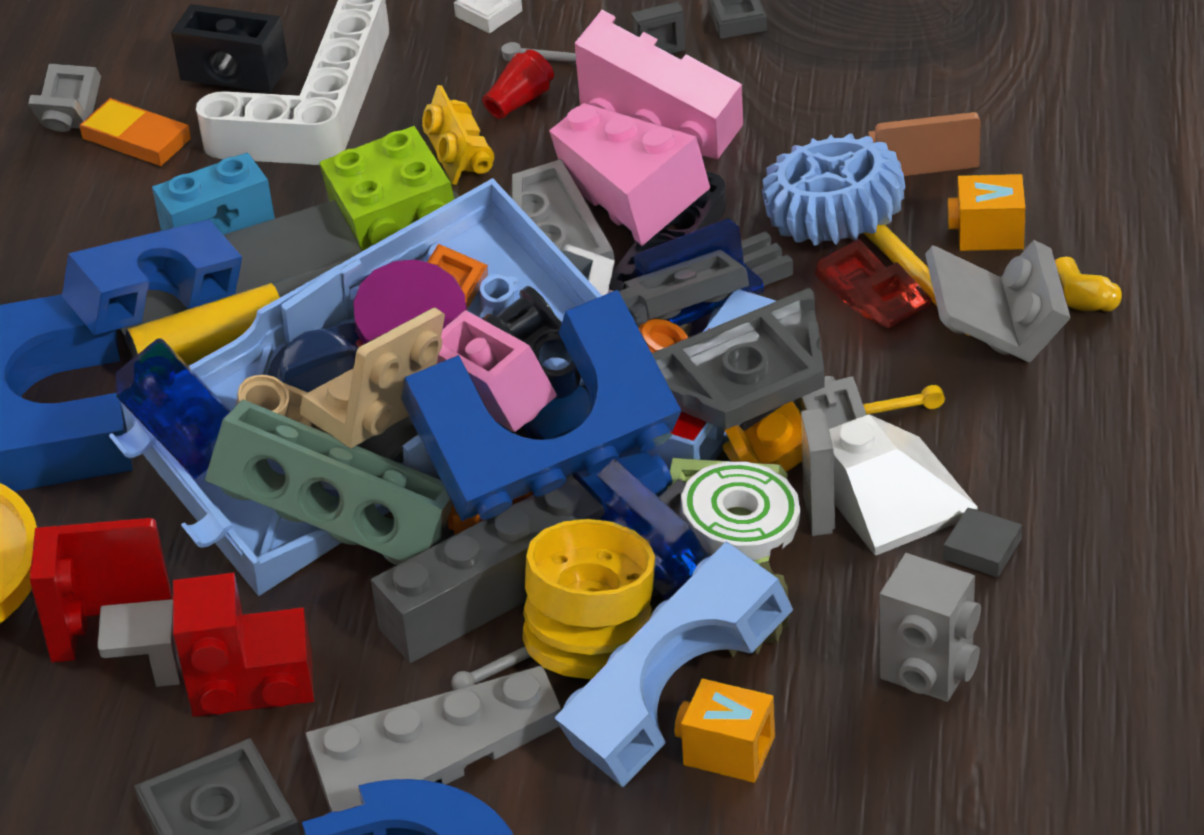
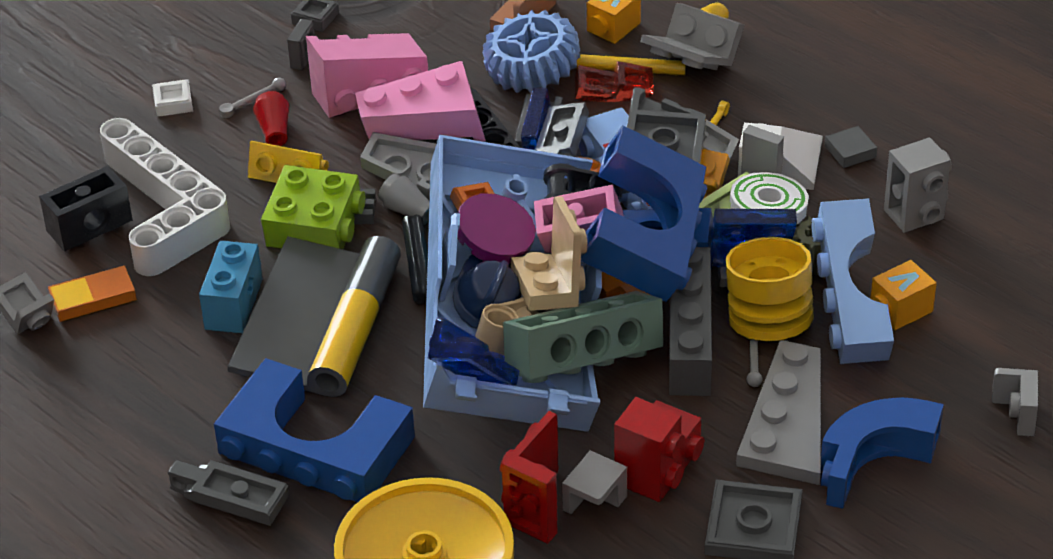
camera: 55 degrees left, 0 degrees up
(112, 280) = (288, 331): blue arch -> none

